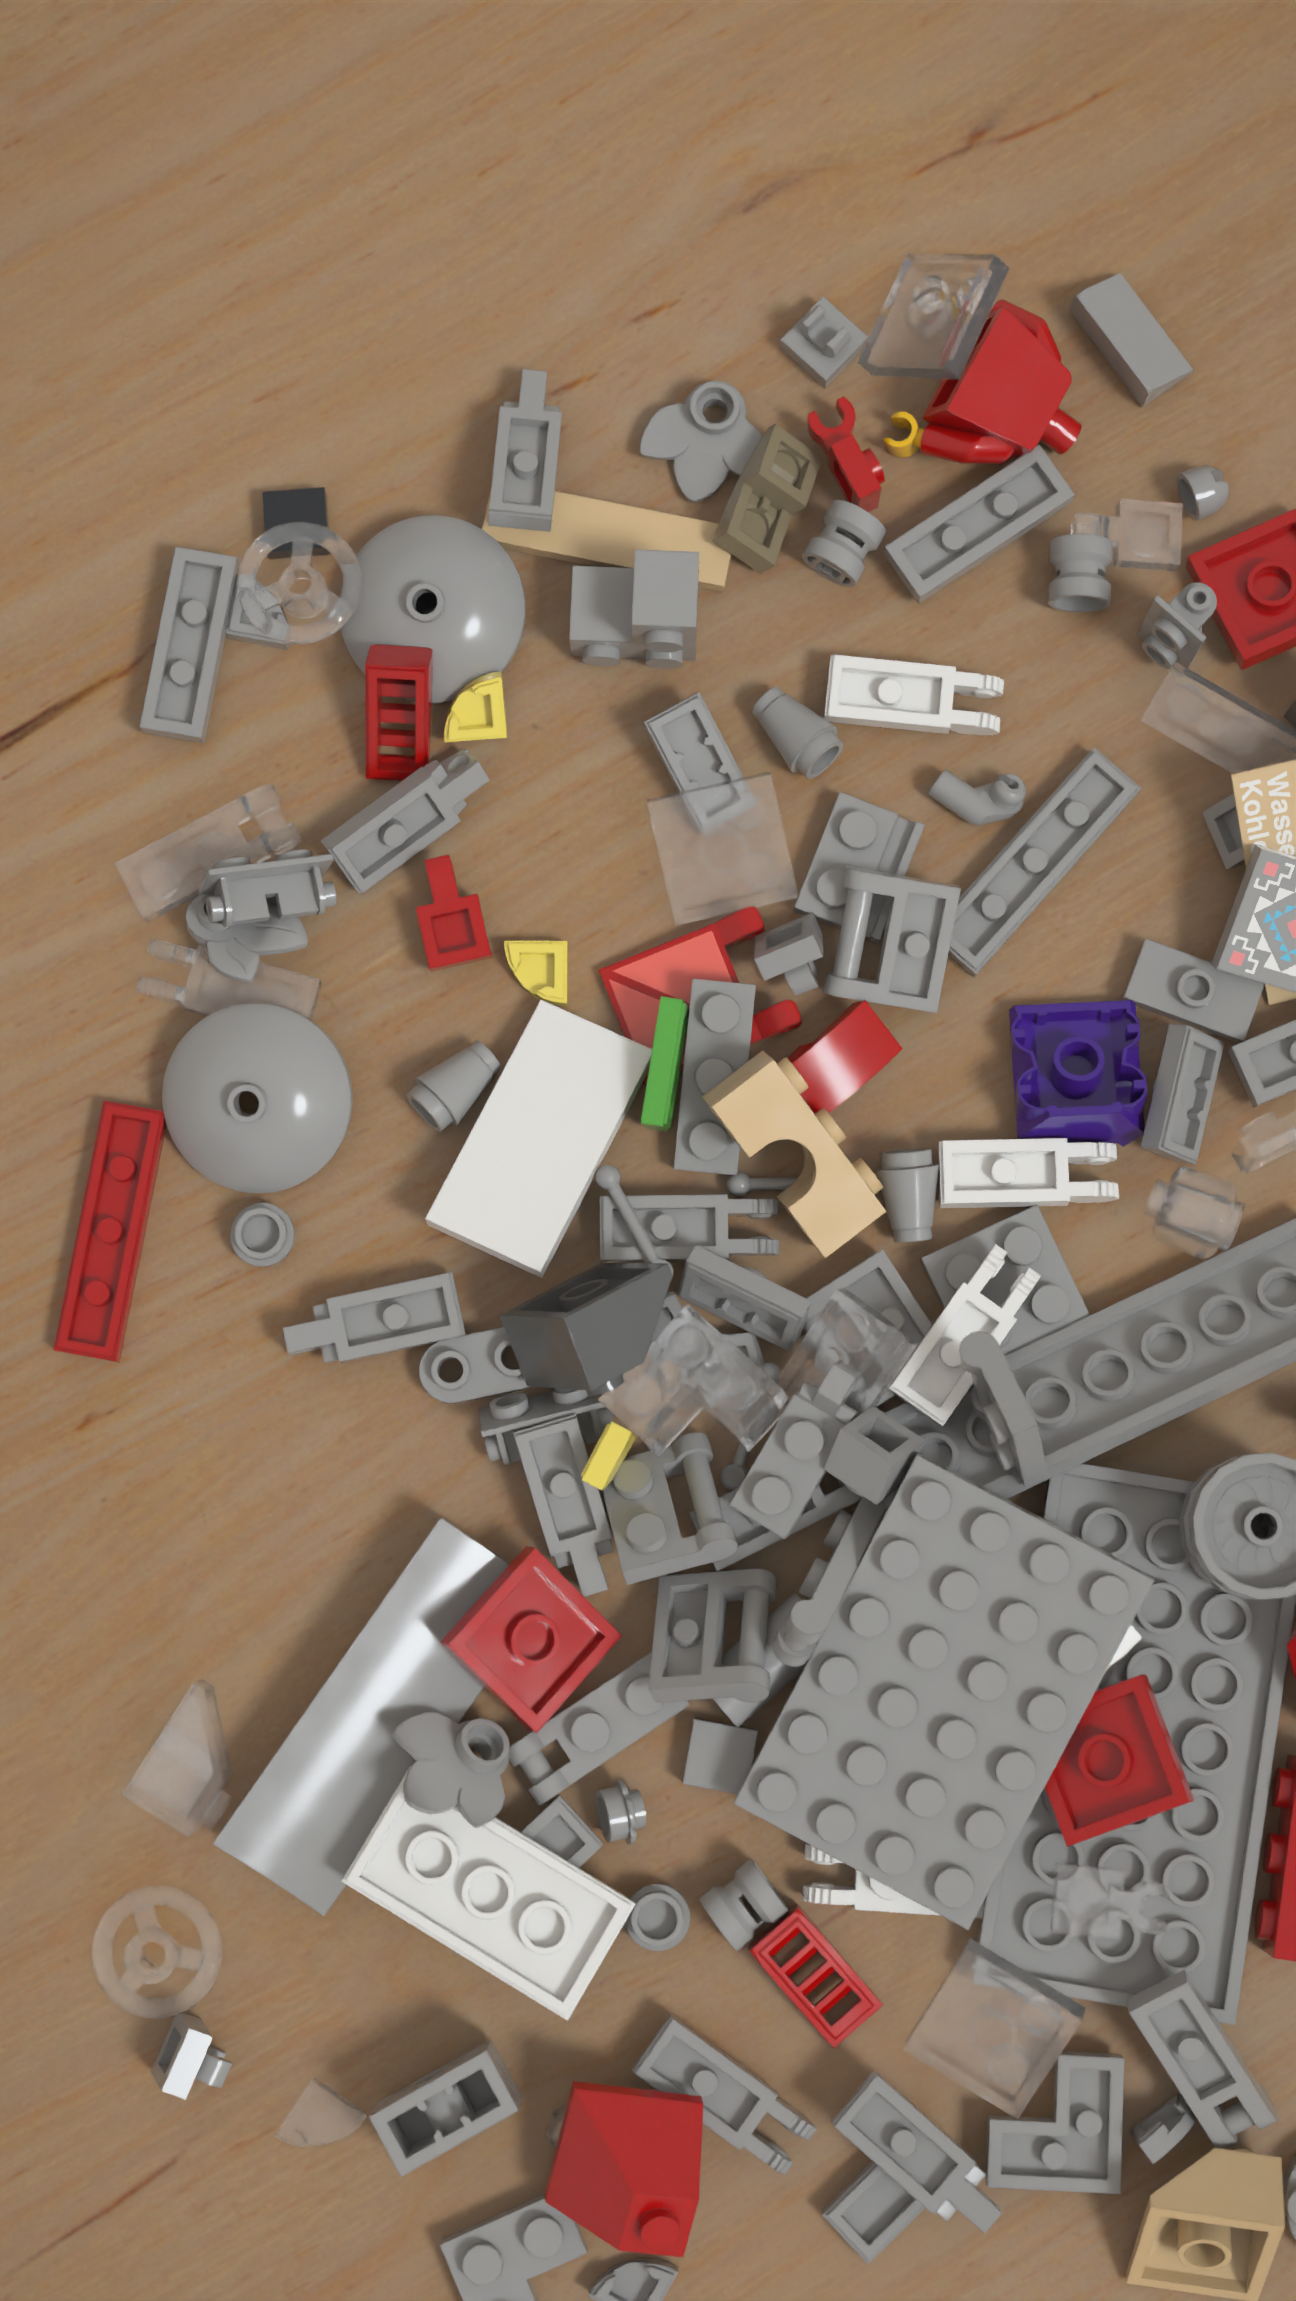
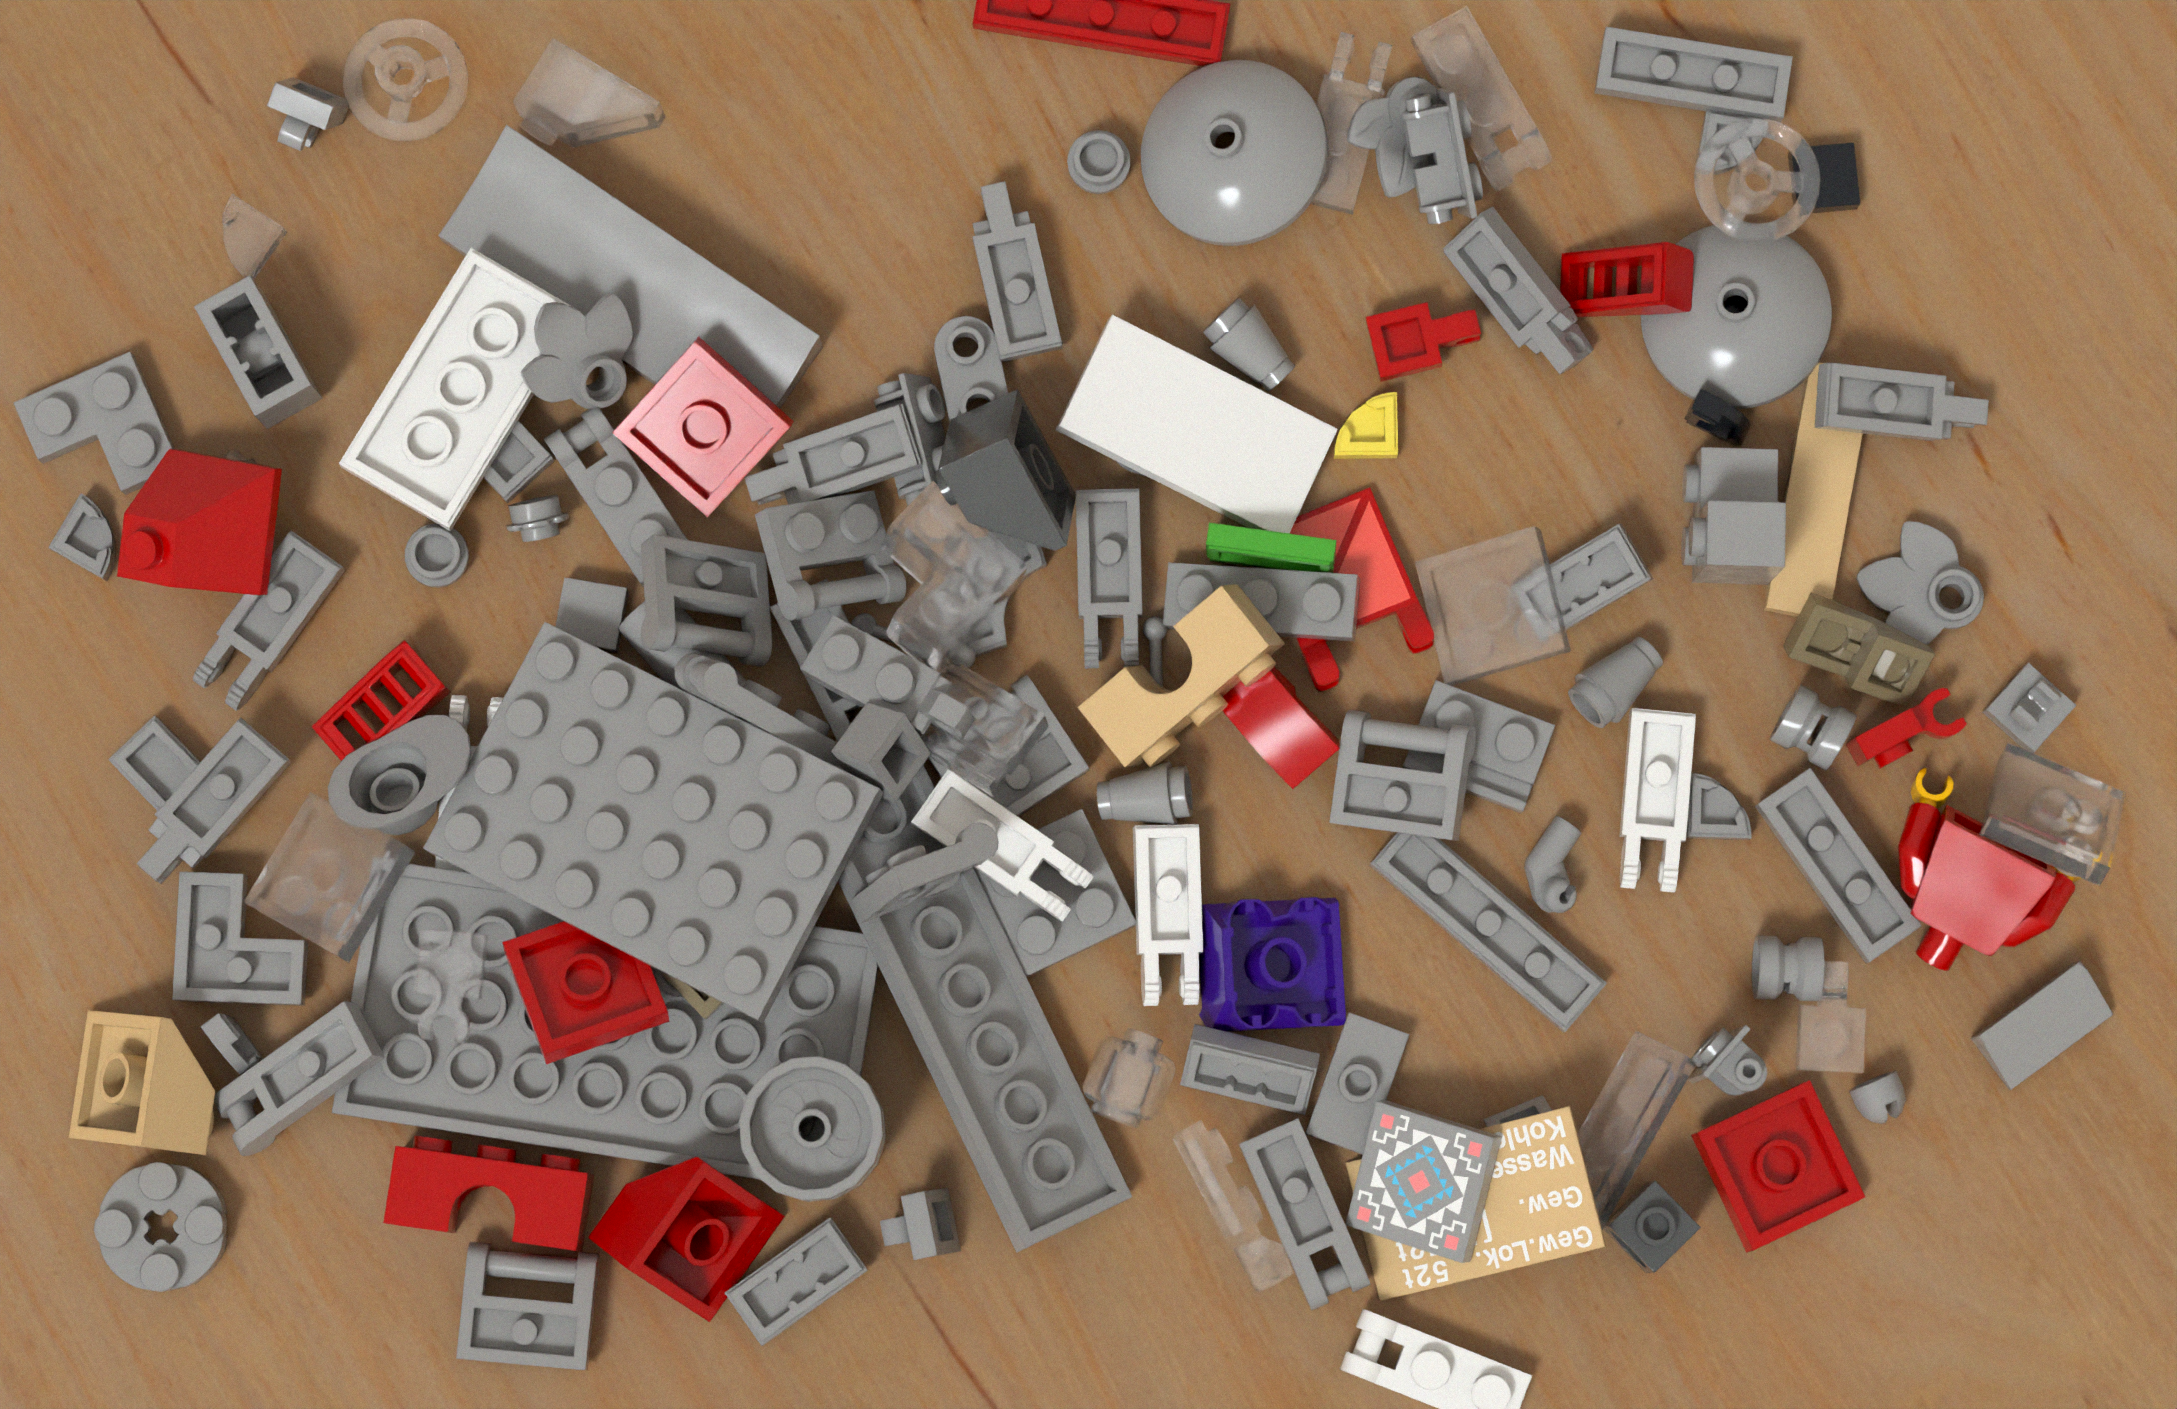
camera: 85 degrees right, 0 degrees up
(477, 711) = (1631, 362): light yellow tile -> none
(535, 630) = (1717, 418): none -> black tile
(608, 1455) = (878, 493): light yellow tile -> none
(609, 1178) = (1155, 495): light grey hinge -> none
(732, 1914) = (448, 636): light grey wheel -> none
(743, 1297) = (1038, 629): light grey plate -> none
(791, 951) = (1388, 675): light grey tile -> none
(890, 1954) = (401, 775): none -> light grey piece
(924, 639) = (1715, 812): none -> light grey tile

